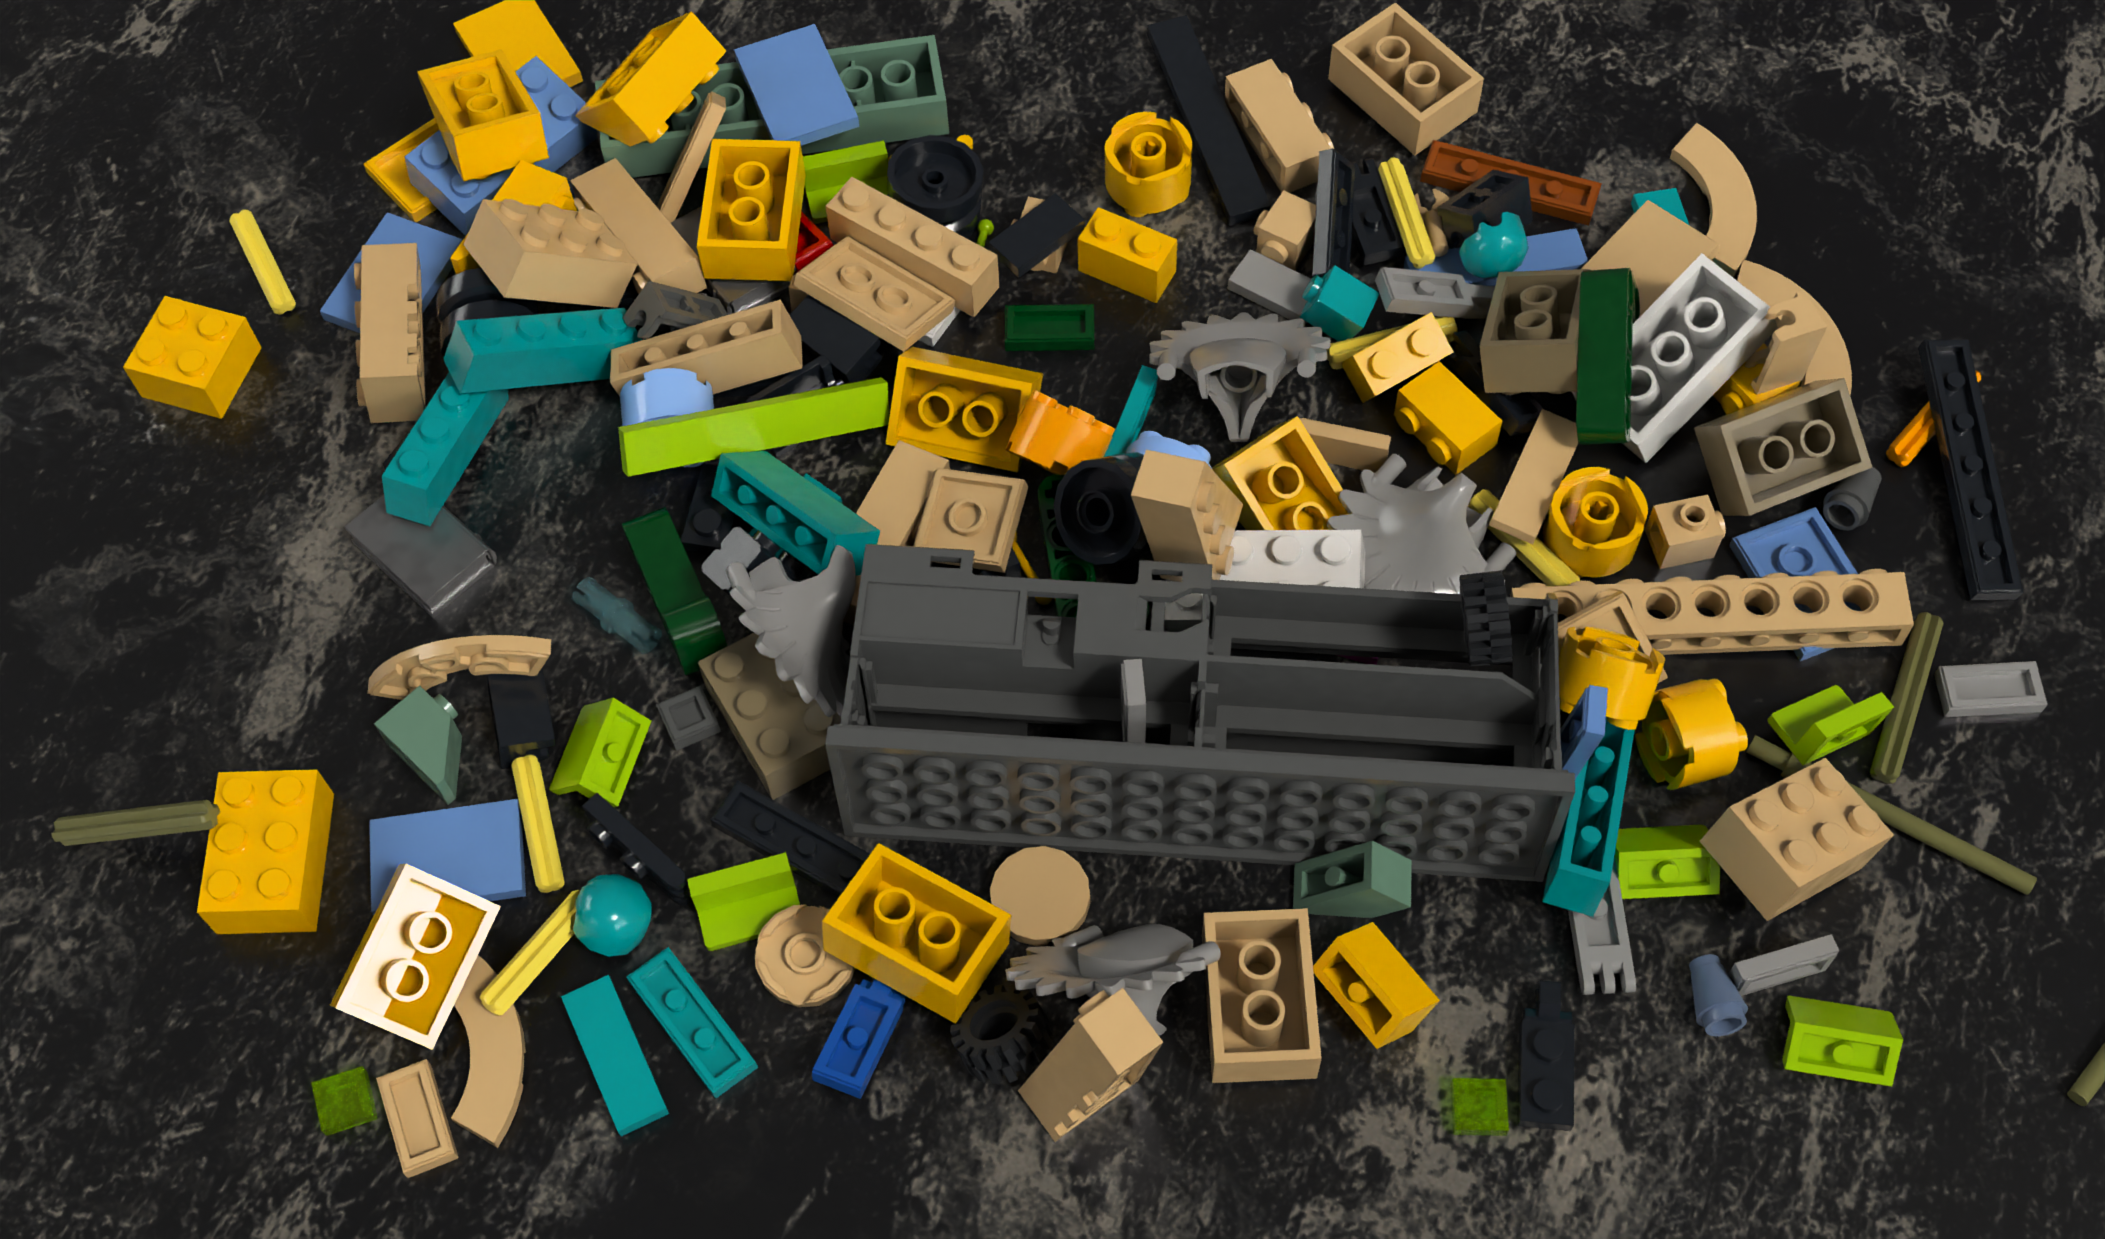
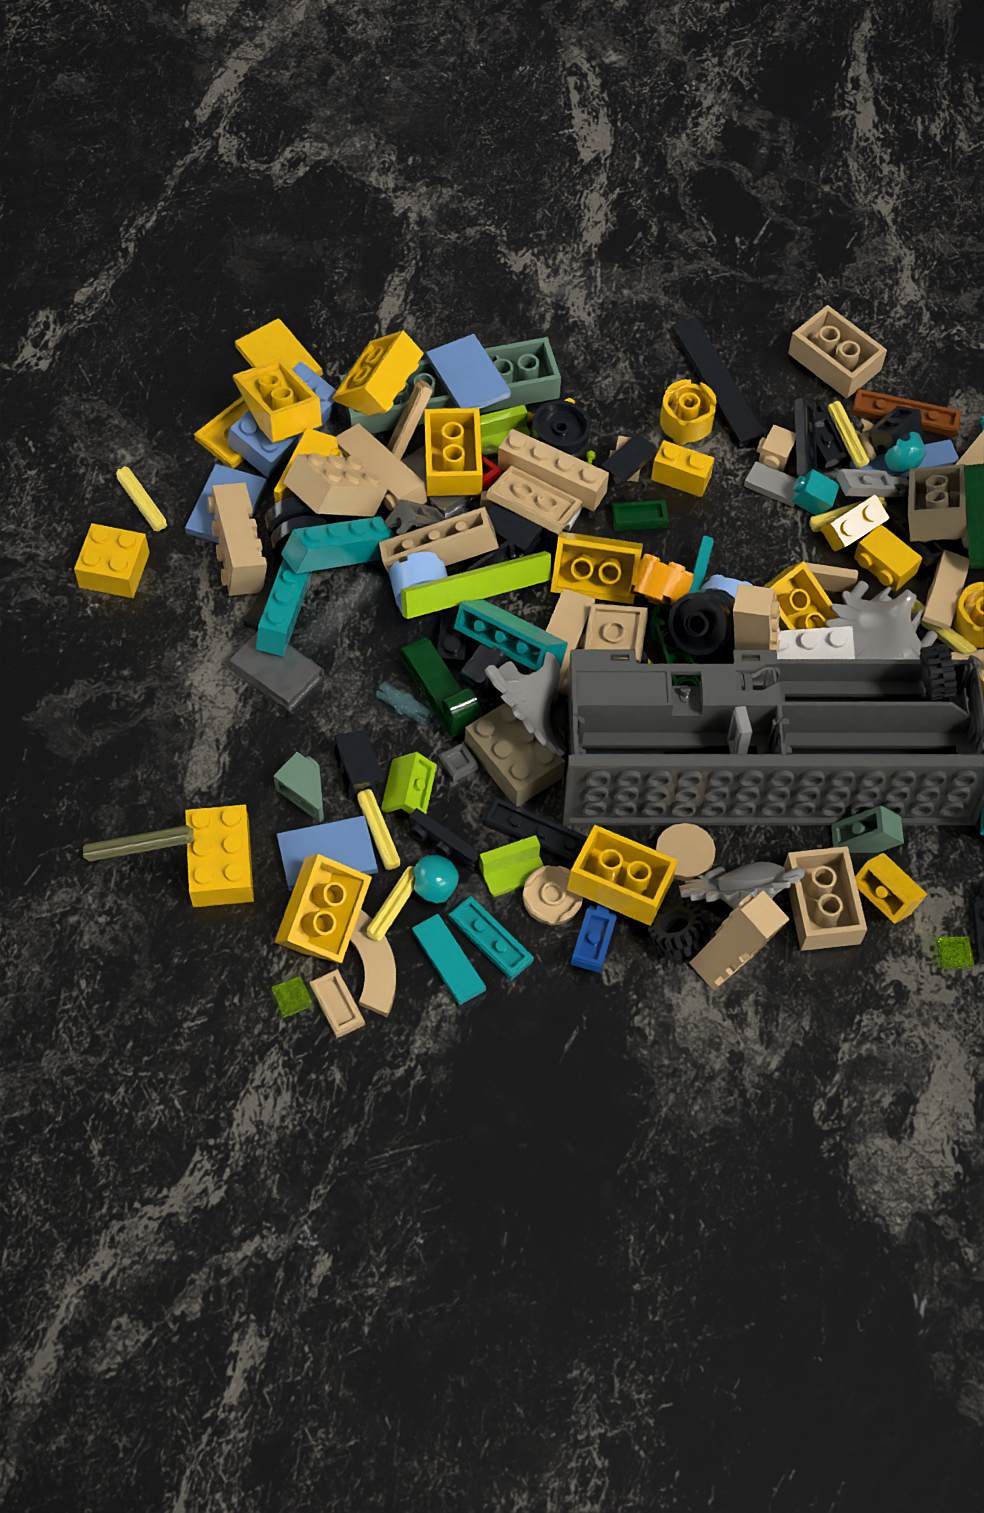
camera: 10 degrees left, 0 degrees up
(431, 662) = (334, 730): tan tile -> none
(1239, 361) = (761, 529): light grey piece -> none
(1276, 124) = (762, 384): tan brick -> none

